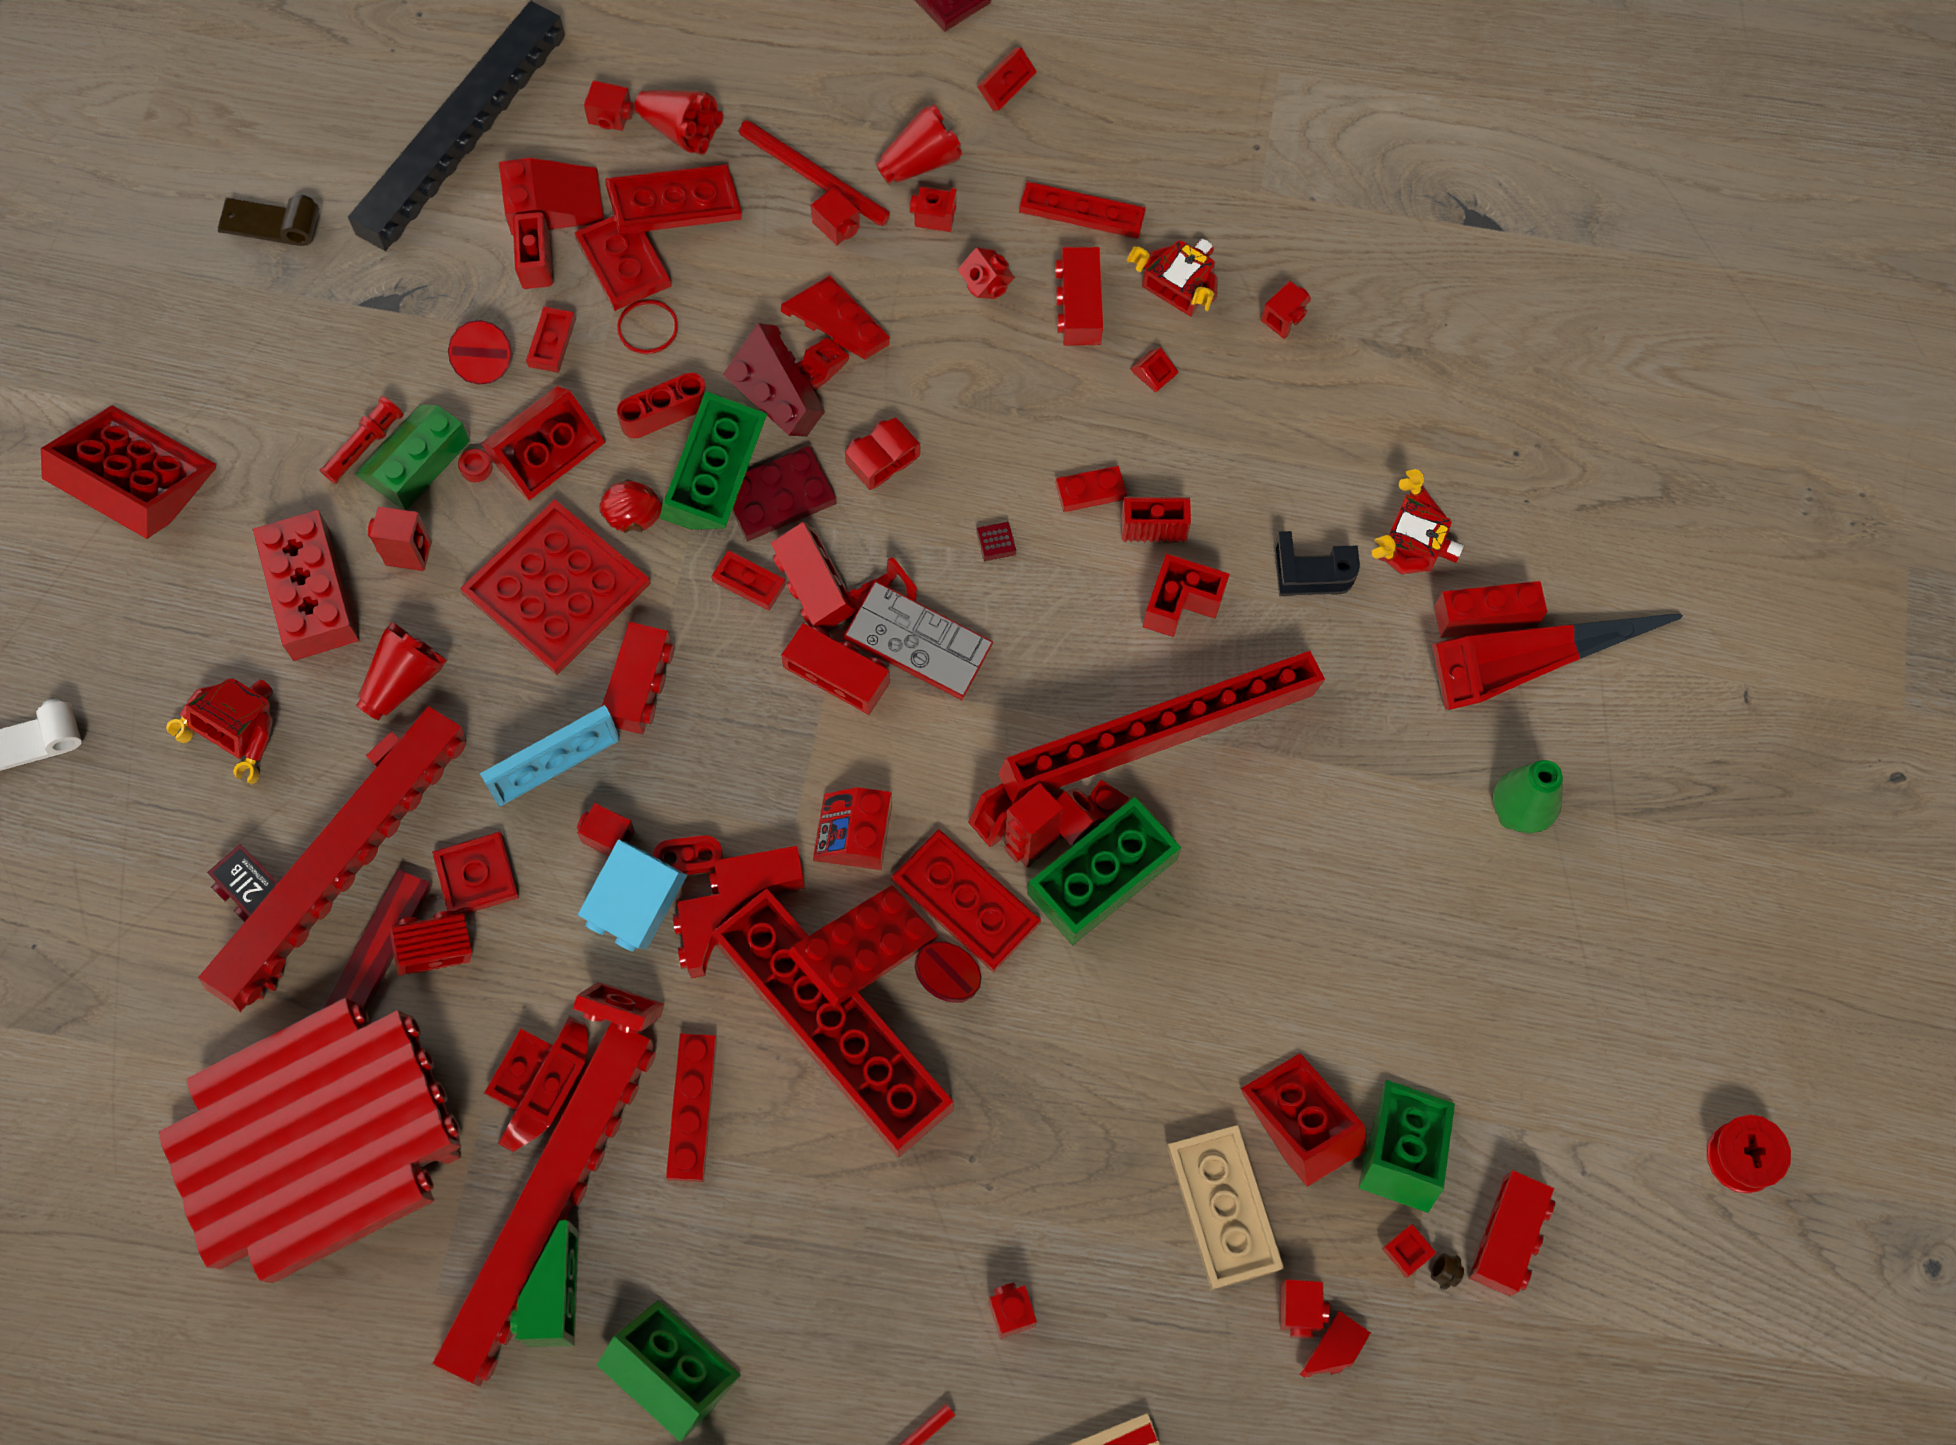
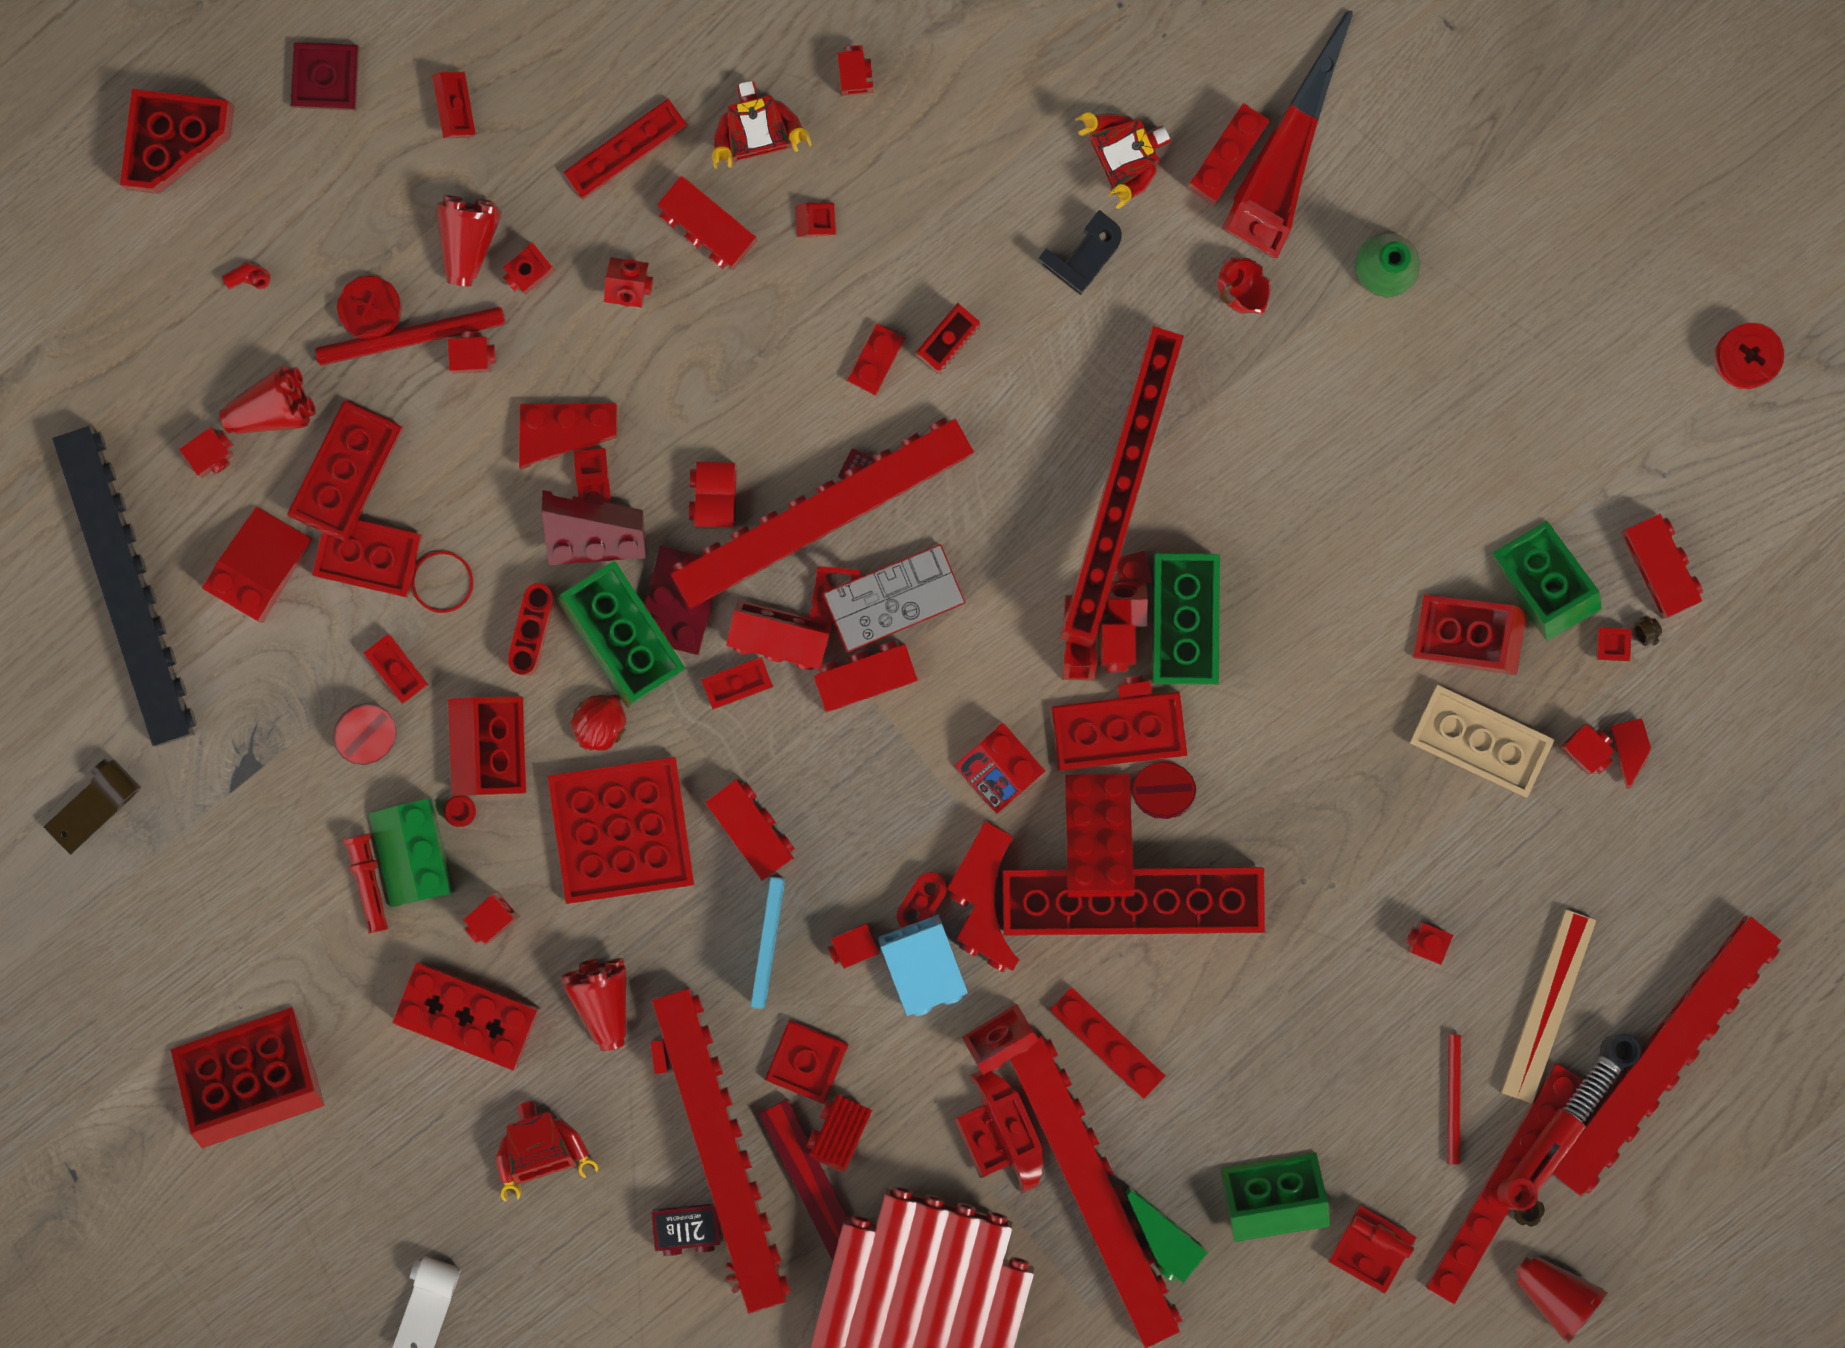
camera: 50 degrees left, 20 degrees up
(532, 250) = (305, 623): red brick -> none
(764, 45) = (247, 273): none -> red arm
(810, 132) = (369, 307): none -> red tile
(937, 533) = (822, 513): none -> red brick
(1012, 878) = (1134, 687): none -> red plate
(1181, 587) = (1016, 373): red brick -> none
(1405, 700) = (1244, 286): none -> red hair

